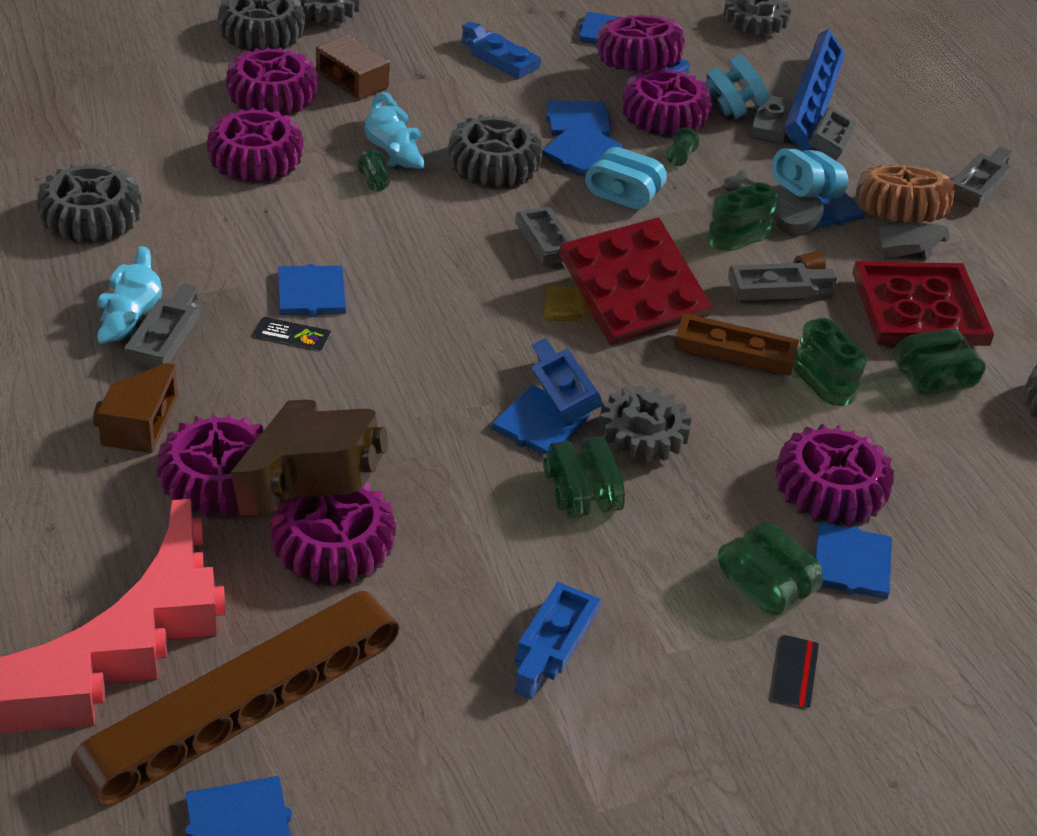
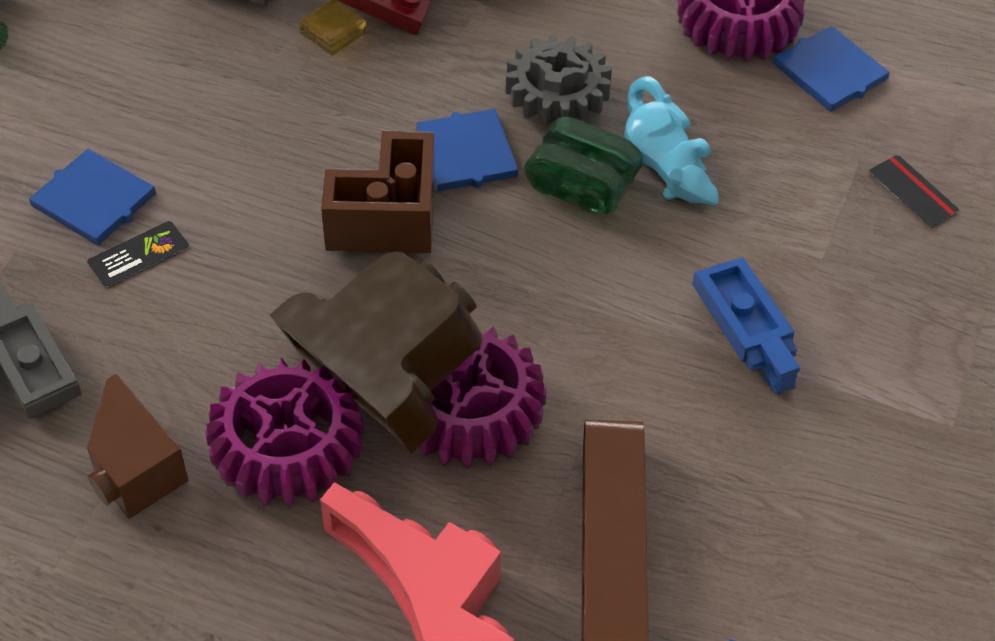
camera: 45 degrees left, 10 degrees up
(439, 404) = (384, 206): none -> reddish brown brick
(565, 382) = (450, 95): blue hinge -> none
(654, 509) = (660, 137): none -> medium azure animal
(770, 568) = (806, 122): clear green brick -> none

